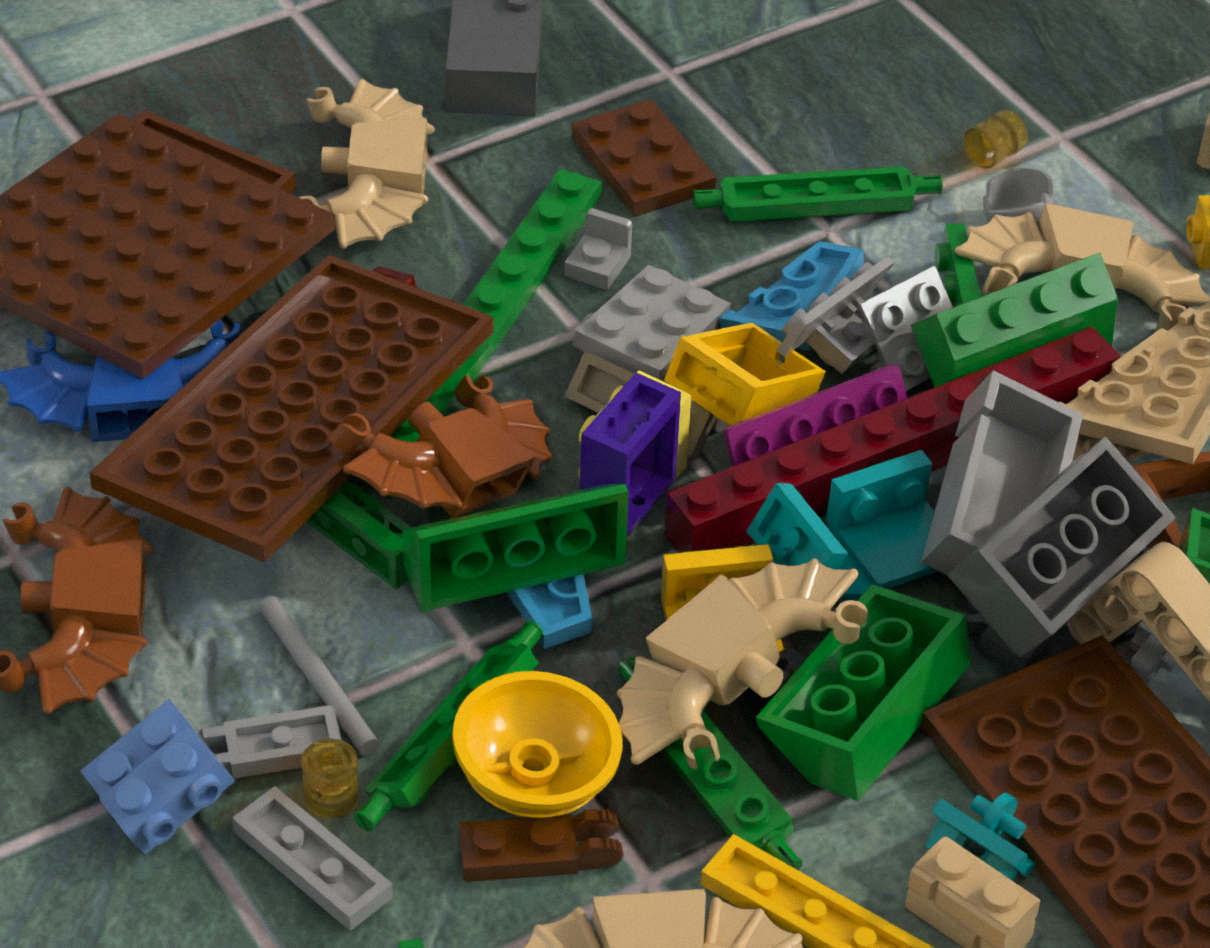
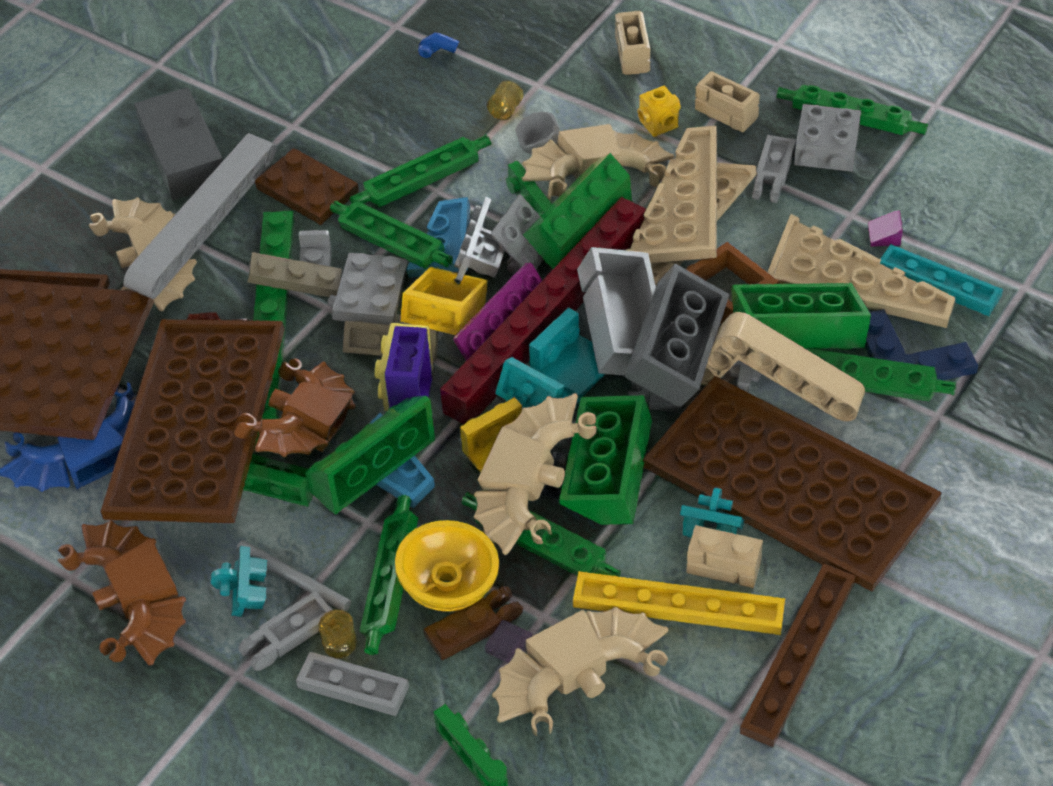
camera: 20 degrees left, 5 degrees up
(157, 777) = (239, 674): medium blue plate -> none
(232, 671) = (237, 580): none -> teal hips
(458, 138) = (199, 217): none -> light grey beam
(549, 264) = (294, 275): none -> dark tan plate
(571, 889) = (506, 640): none -> clear purple tile
(722, 261) = (391, 234): none -> green plate
(938, 28) = (436, 42): none -> blue arm

